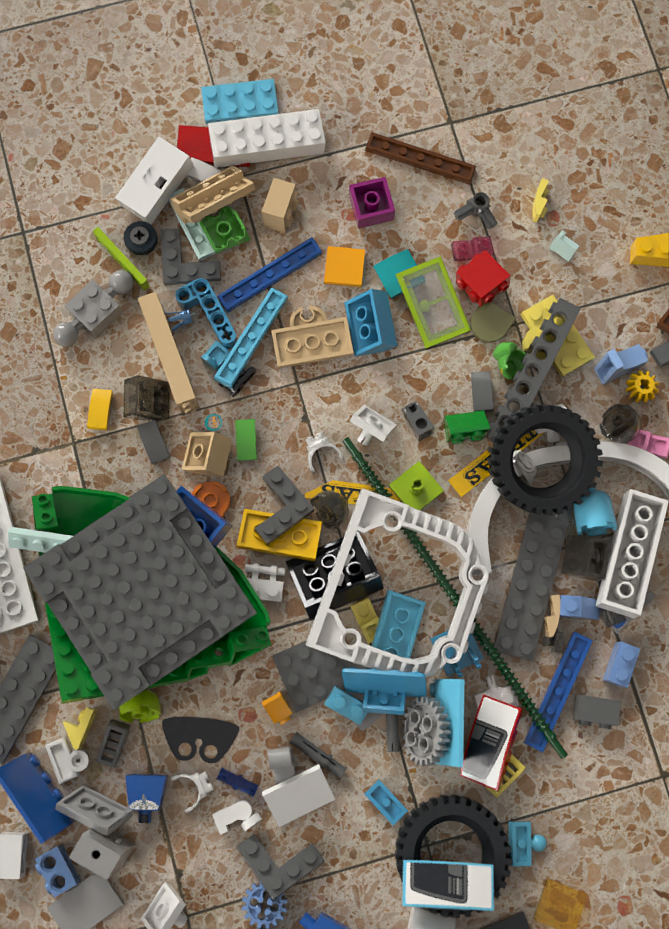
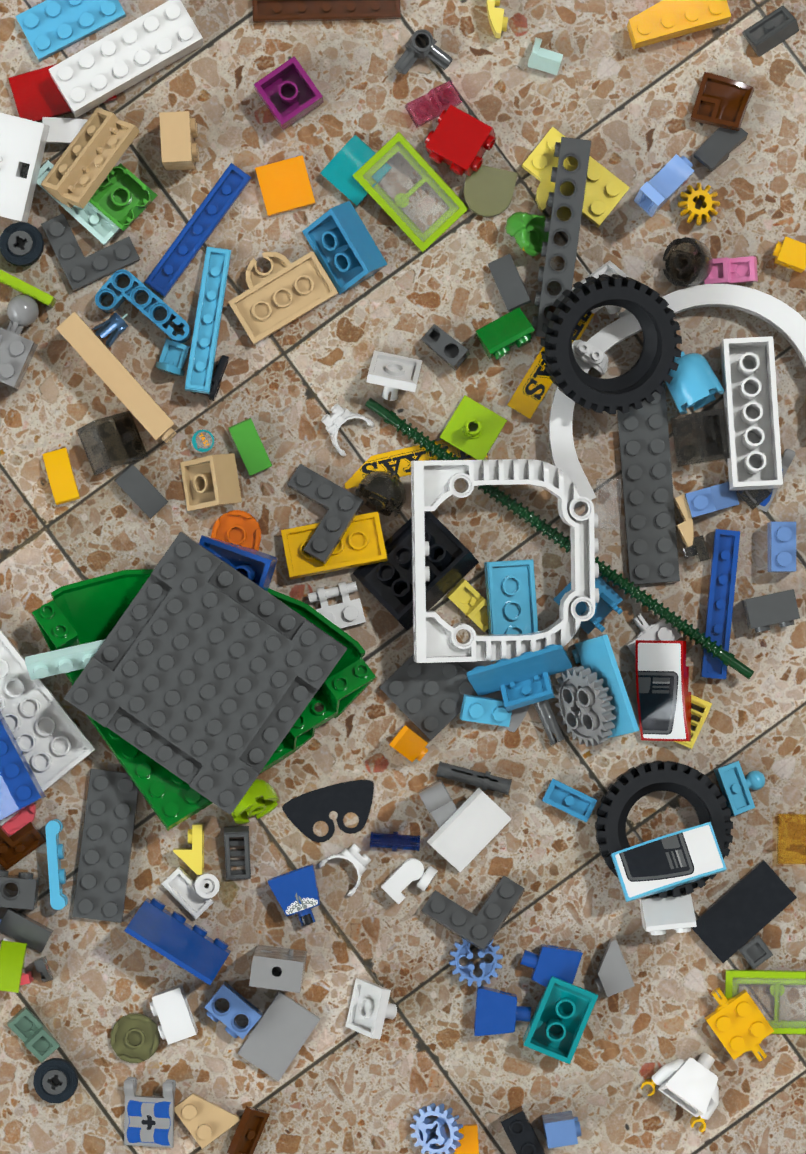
camera: 20 degrees left, 10 degrees up
(94, 810) = (249, 930): light grey tile -> none

